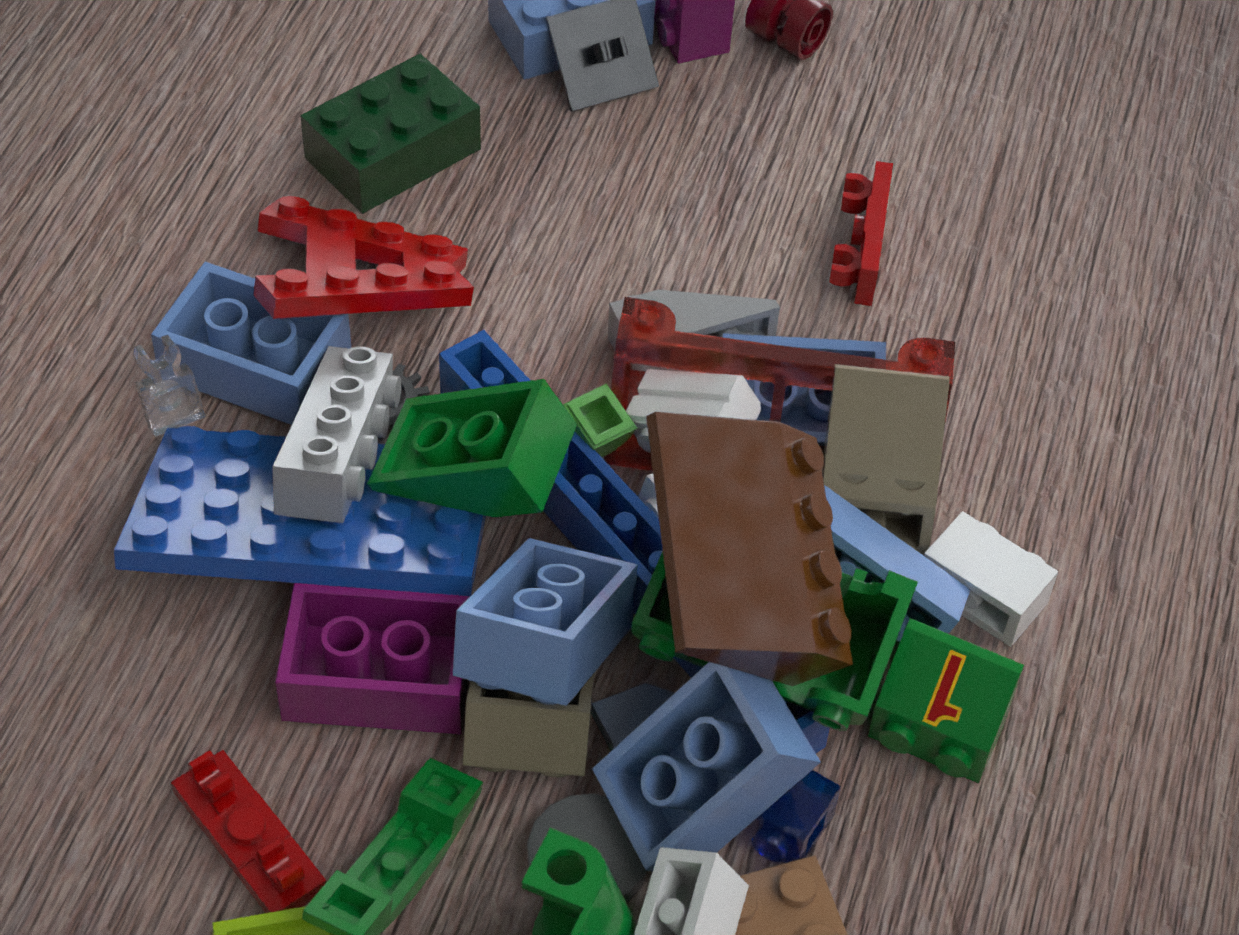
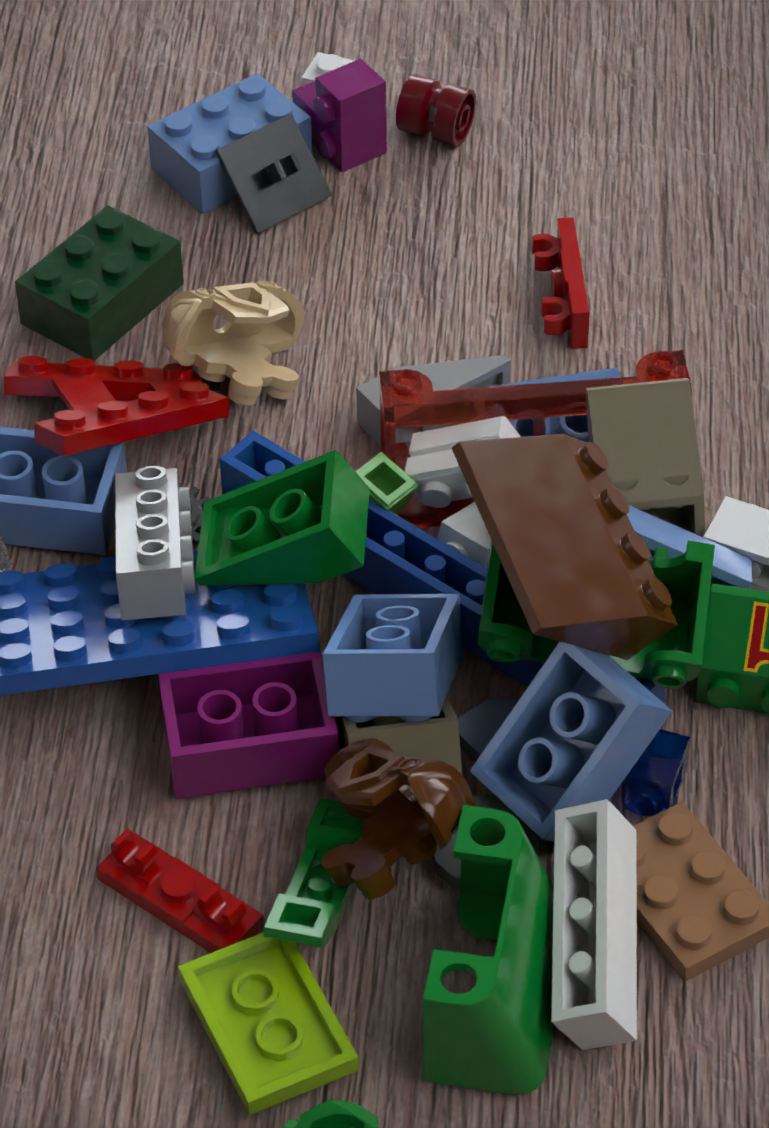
camera: 10 degrees left, 5 degrees down
(497, 802) = (404, 808): none -> reddish brown piece
(528, 210) = (259, 323): none -> tan piece

